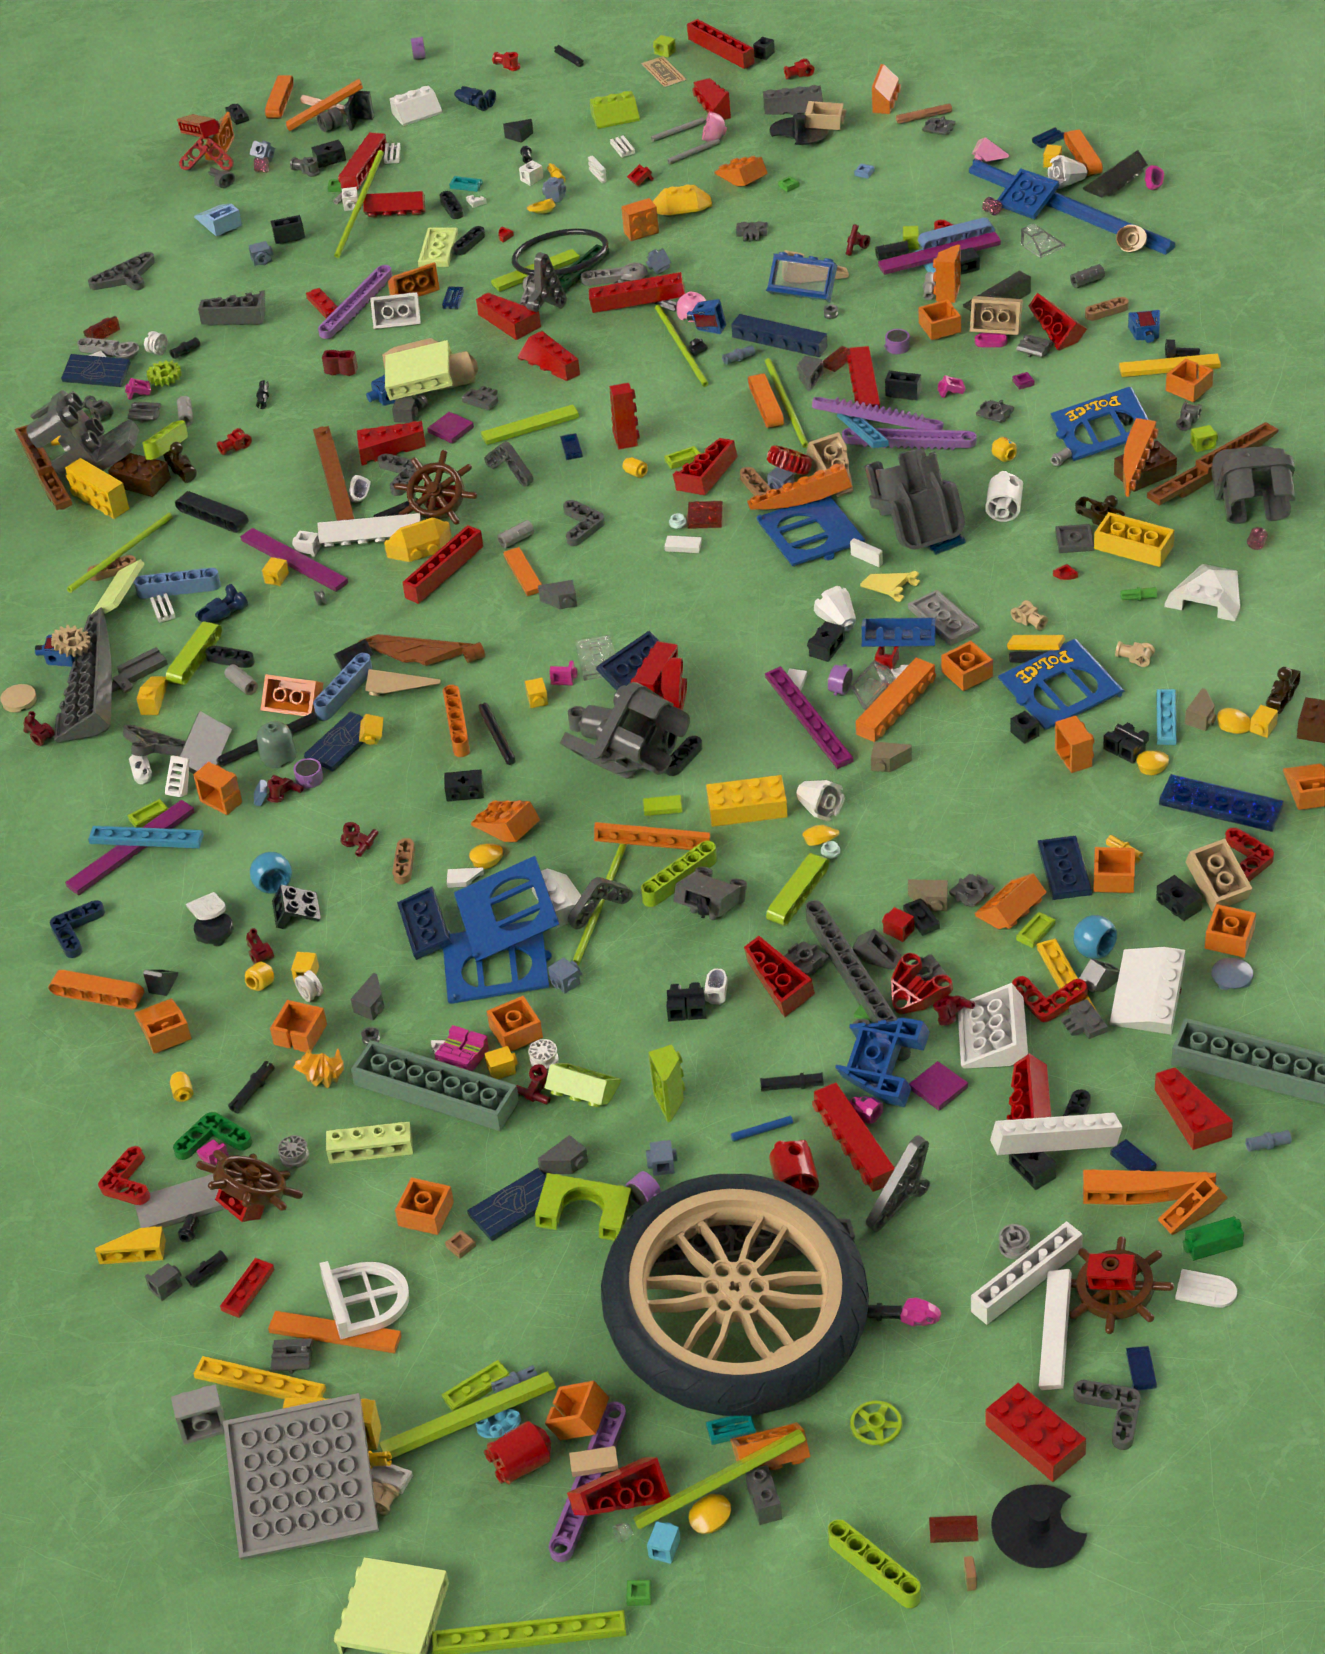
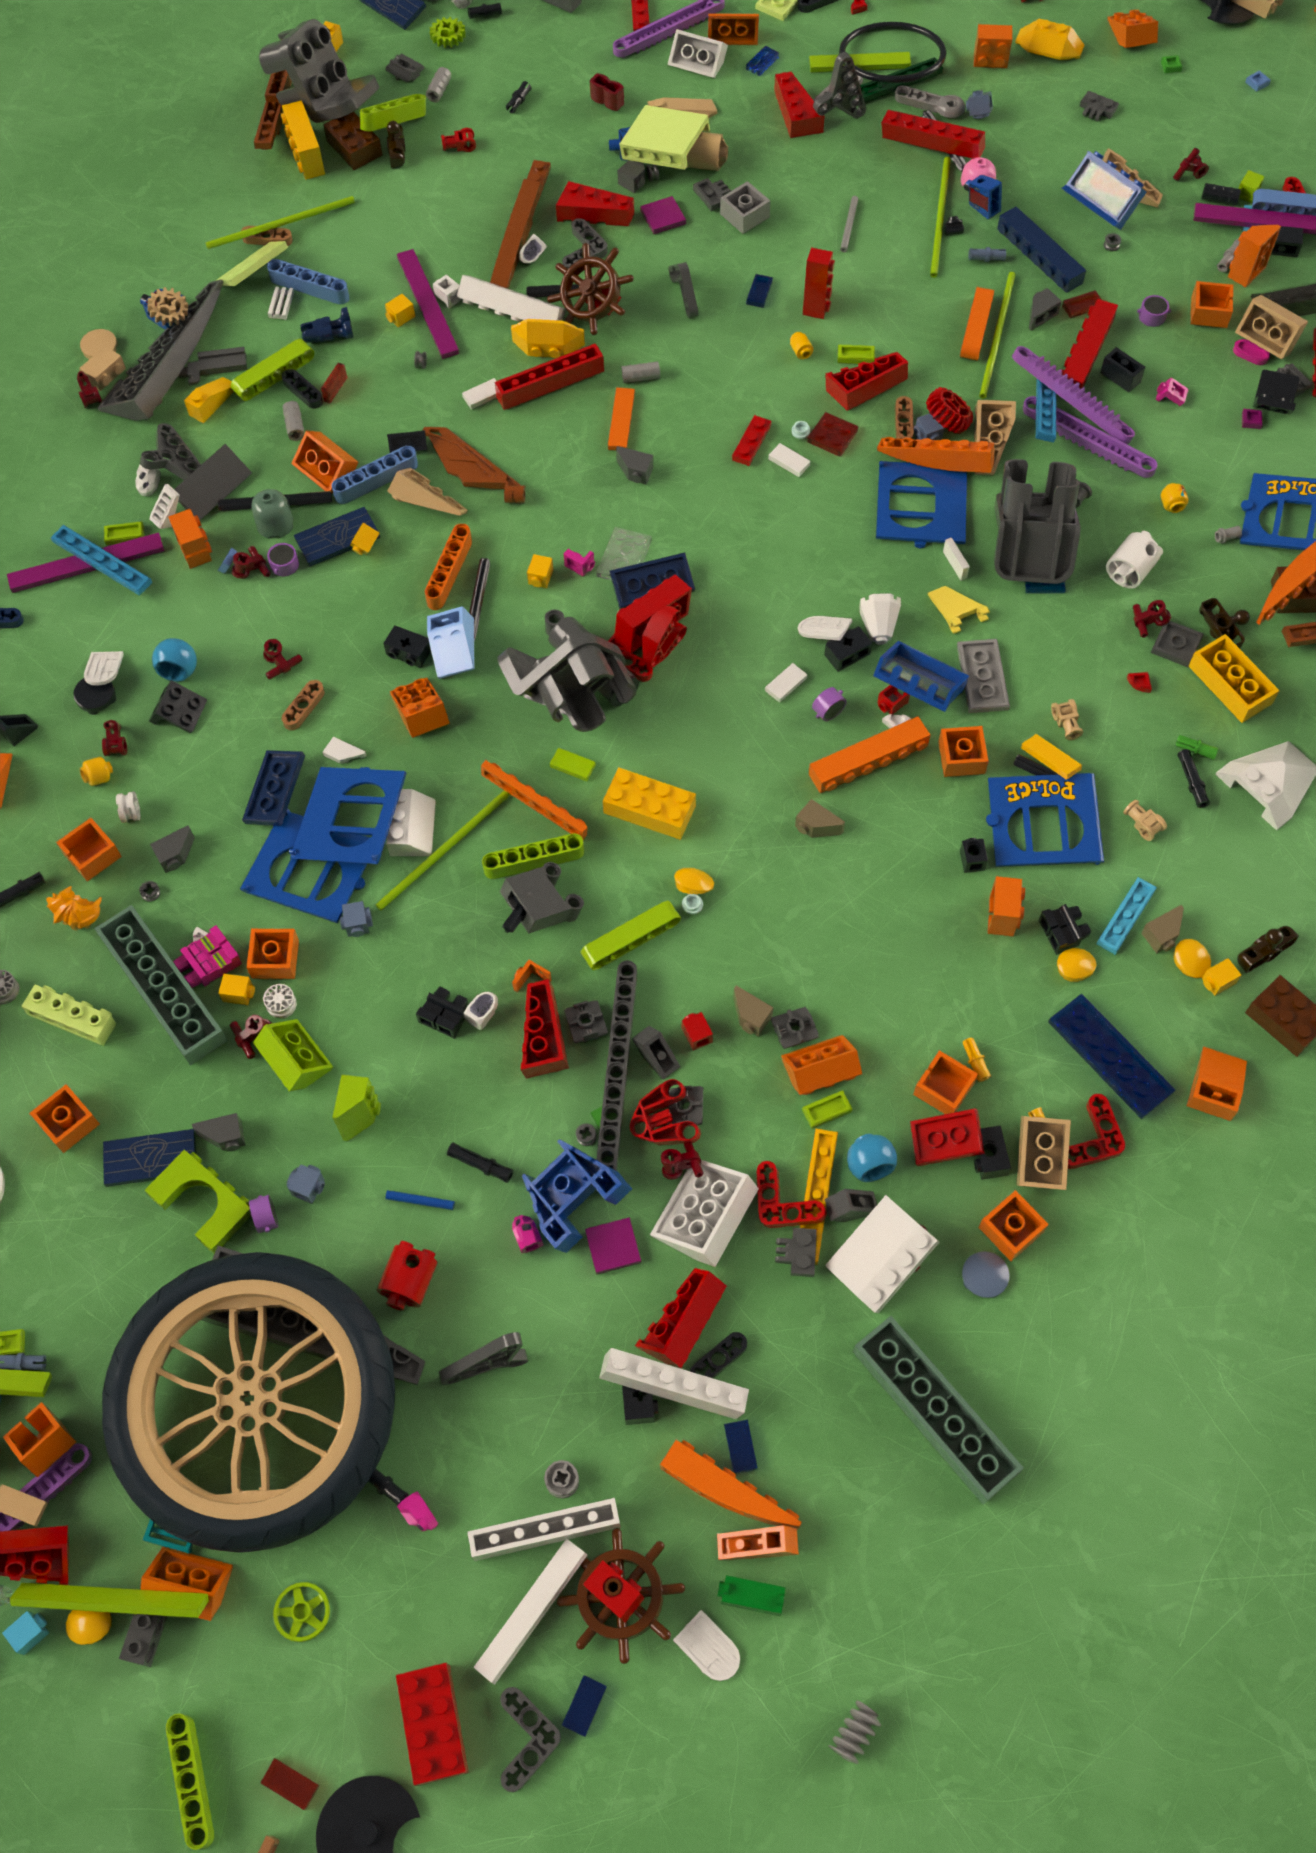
camera: 25 degrees right, 20 degrees up
(42, 704) = (103, 367): none -> tan brick
(98, 408) = (366, 45): dark grey connector -> none
(137, 386) = (415, 38): dark pink bracket -> none
(211, 511) = (389, 213): black beam -> none
(256, 640) = (334, 382): none -> clear red tile
(303, 962) = (141, 781): yellow brick -> none
(390, 600) = (480, 394): none -> white tile
(460, 1244) = (76, 1175): medium nougat tile -> none
(486, 855) = (378, 737): yellow hat -> none
(502, 764) = (451, 641): none -> light blue slope
(518, 395) = (745, 207): none -> light grey brick
(529, 424) = (737, 246): lime tile -> none
(550, 356) = (804, 172): red wedge -> none
(593, 520) = (717, 389): dark grey beam -> none
(593, 892) = (440, 843): dark grey beam -> none
(606, 367) = (849, 223): none -> light grey piece
(642, 543) = (751, 440): none -> red plate
(691, 747) = (632, 707): black beam -> none
(735, 945) = (524, 973): none -> orange bracket
(797, 635) = (824, 627): none -> white window
(809, 717) = (773, 733): magenta tile -> none
(821, 798) = (718, 839): white cone -> none
(853, 1136) = (493, 1264): red brick -> none
(872, 683) = (859, 724): clear slope -> none
(923, 917) = (725, 1033): black plate -> none
(995, 411) = (1197, 444): dark grey piece -> none
(1030, 355) = (1276, 392): none -> black bracket
(1044, 527) = (1150, 616): none -> dark red piece
(1064, 867) = (904, 1048): dark blue tile -> none
(1140, 901) = (947, 1137): none -> red tile
(1156, 617) = (1196, 785): none -> black pin
(1192, 1110) = (832, 1431): red wedge -> none
(1268, 1140) = (885, 1506): sand blue pin -> none

